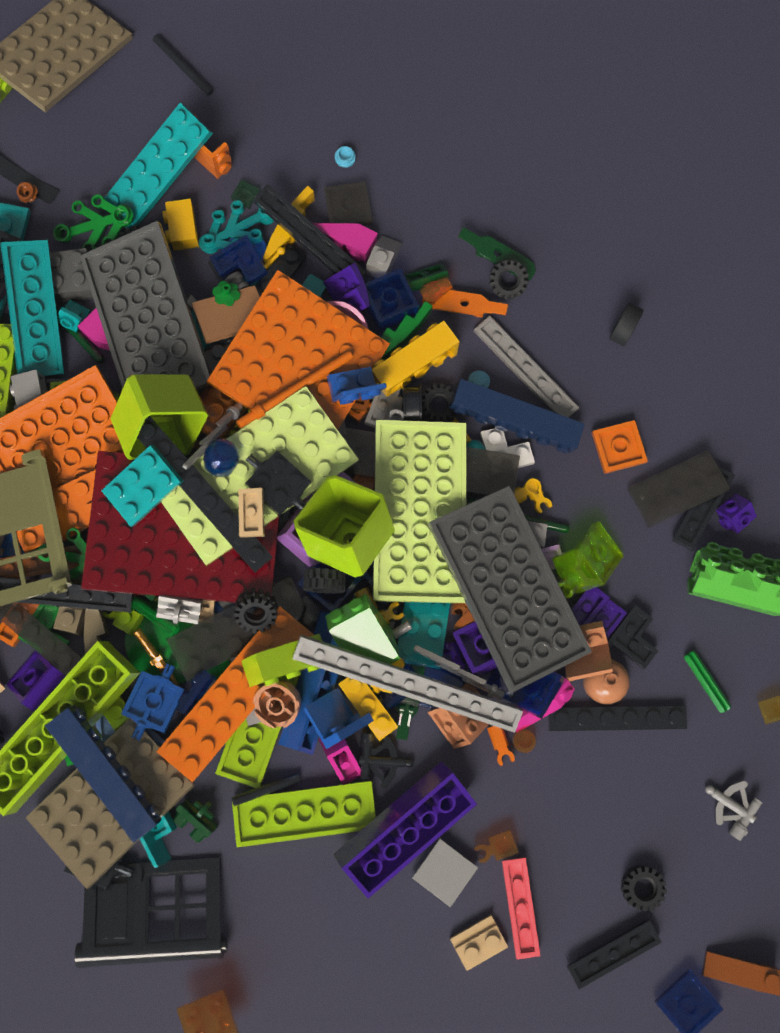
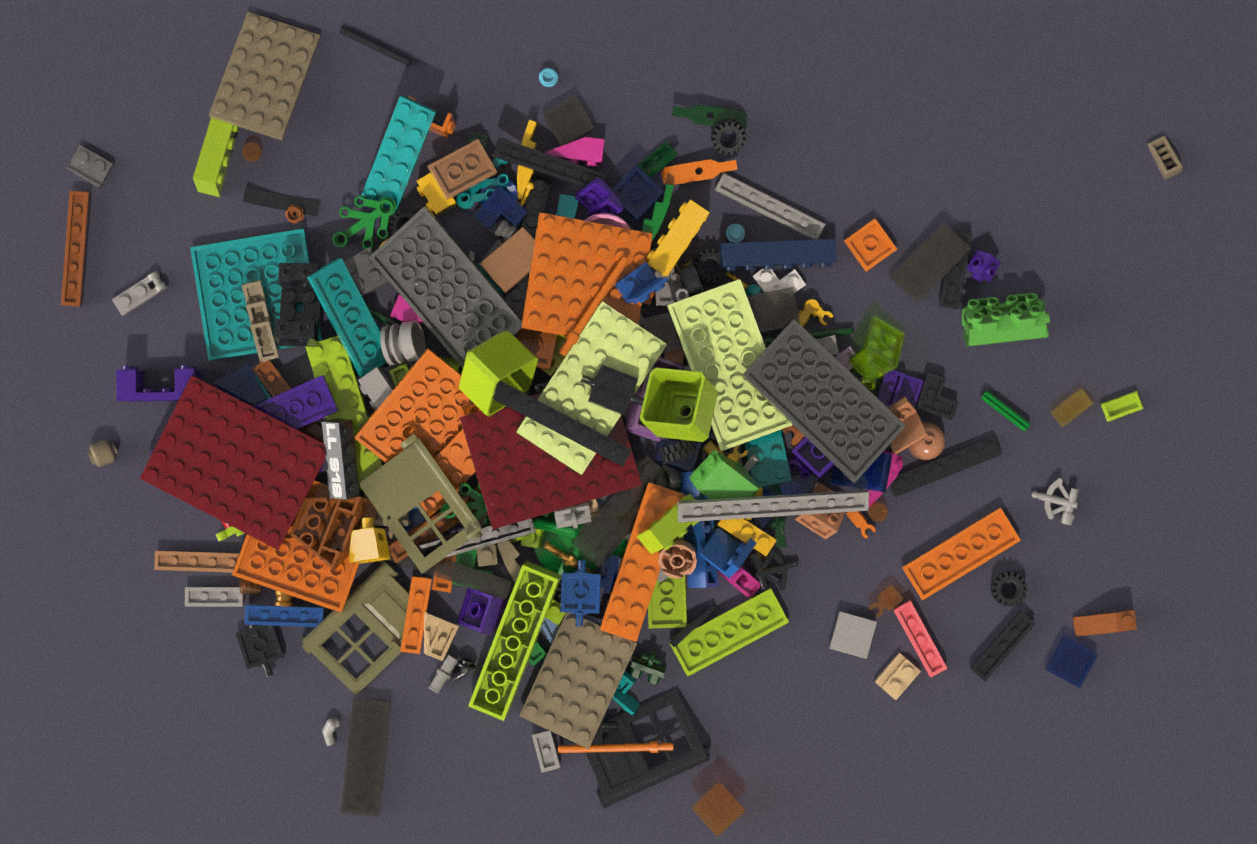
camera: 15 degrees left, 10 degrees up
(12, 117) = (251, 152): none -> clear orange plate
(40, 872) = (546, 751): none -> light grey plate
(72, 315) = (381, 307): teal bracket -> none
(75, 354) = (402, 342): none -> light grey wheel
(103, 772) = (569, 660): dark blue brick -> none
(142, 485) = (509, 433): teal plate -> none
(162, 915) = (653, 747): none -> orange bar
(216, 207) = (462, 169): none -> medium nougat plate
(221, 457) = (560, 387): clear blue hair -> none
(226, 293) = (503, 248): green plant -> none
(232, 412) = (551, 344): light grey piece -> none
(251, 512) = (603, 422): tan plate -> none
(255, 599) = (637, 501): black tyre -> none
(382, 257) = (616, 155): light grey slope -> none
(404, 829) = (811, 614): dark purple brick -> none
(435, 290) = (671, 170): clear orange cone -> none
(467, 677) = (815, 481): light grey piece -> none
(602, 825) = (961, 553): none -> orange plate
(626, 324) = (839, 139): black tyre -> none

